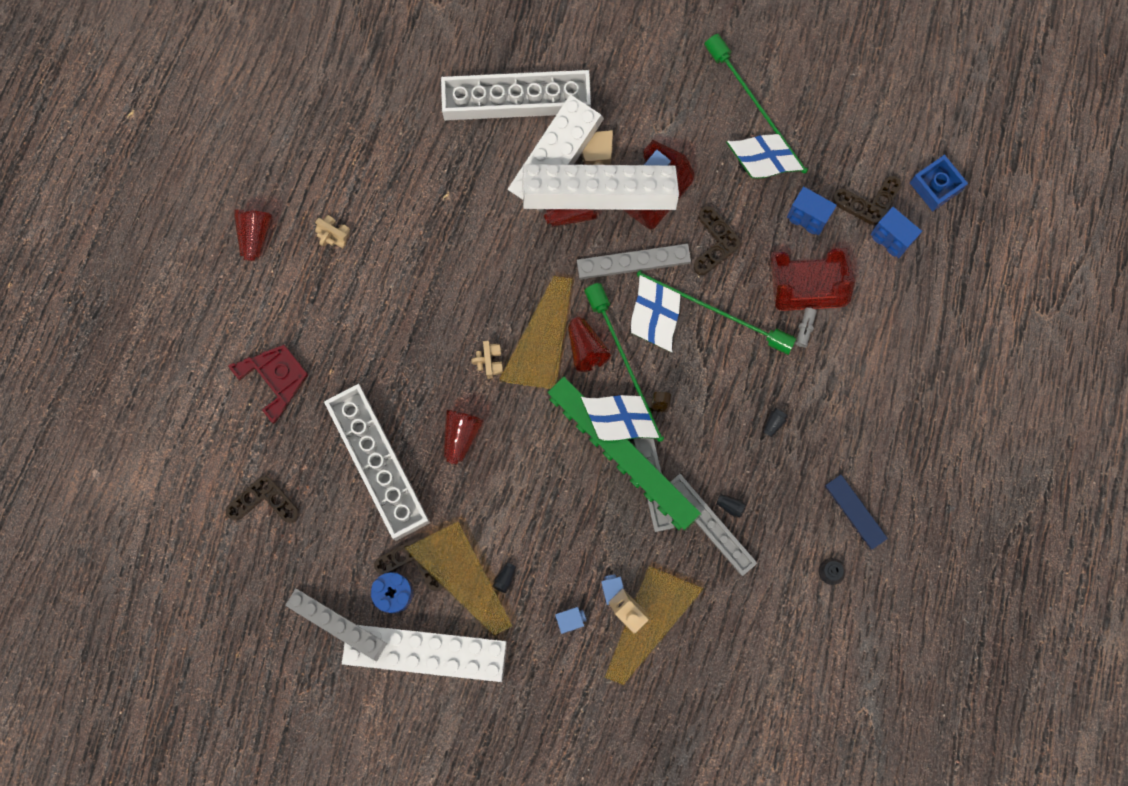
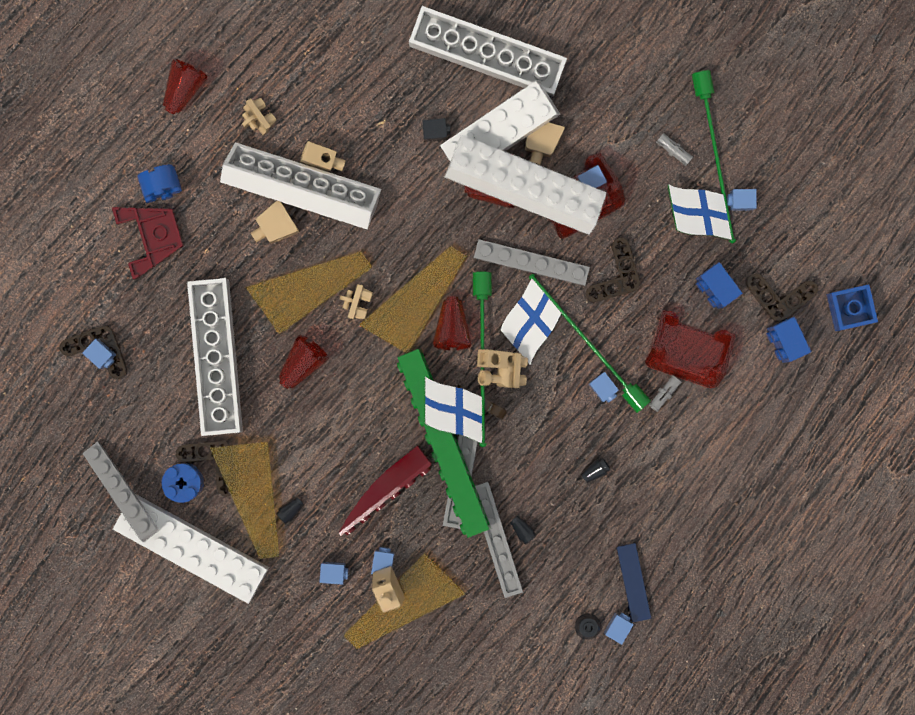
camera: 20 degrees right, 10 degrees up
(263, 324) = (159, 183): none -> blue brick
(266, 503) = (99, 354): none -> medium blue brick
(385, 320) = (274, 224): none -> tan torso
(394, 275) = (300, 185): none -> white brick
(403, 244) = (312, 157): none -> tan torso
(432, 374) = (300, 292): none -> clear yellow wing
(497, 180) = (435, 130): none -> black brick
(588, 515) = (388, 486): none -> dark red wedge
(652, 358) = (507, 365): none -> tan hips
(717, 113) = (674, 149): none -> light grey pin
(748, 344) = (604, 387): none -> medium blue brick
(797, 131) = (742, 199): none -> medium blue brick
(861, 559) = (618, 627): none -> medium blue brick

